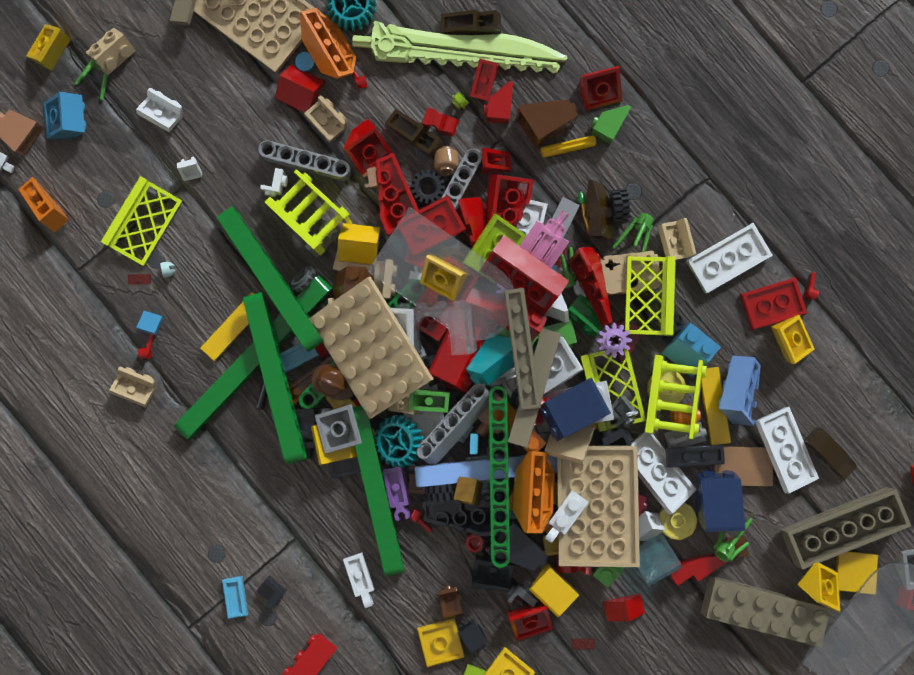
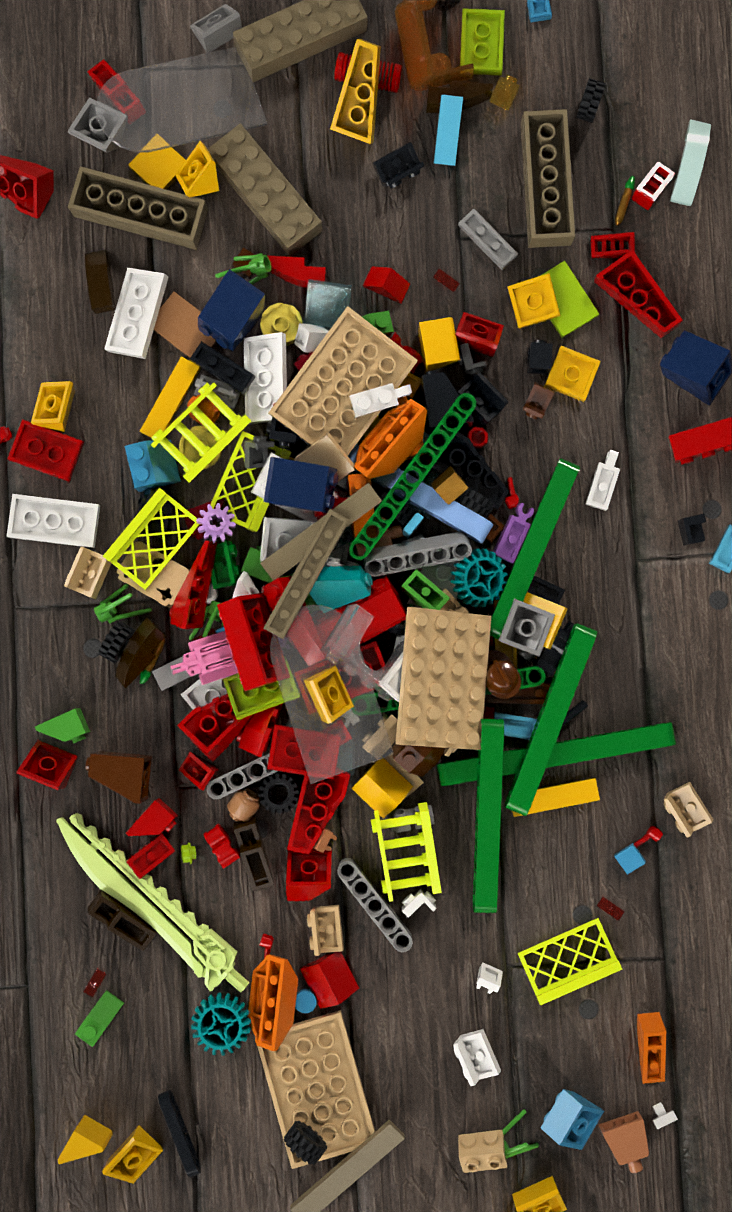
camera: 140 degrees left, 0 degrees up
(166, 271) = (579, 897): light aqua hinge -> none
(302, 279) = (458, 793): dark grey gear -> none
(568, 146) = (120, 734): yellow axle -> none
(739, 390) = (137, 395): medium blue wedge -> none

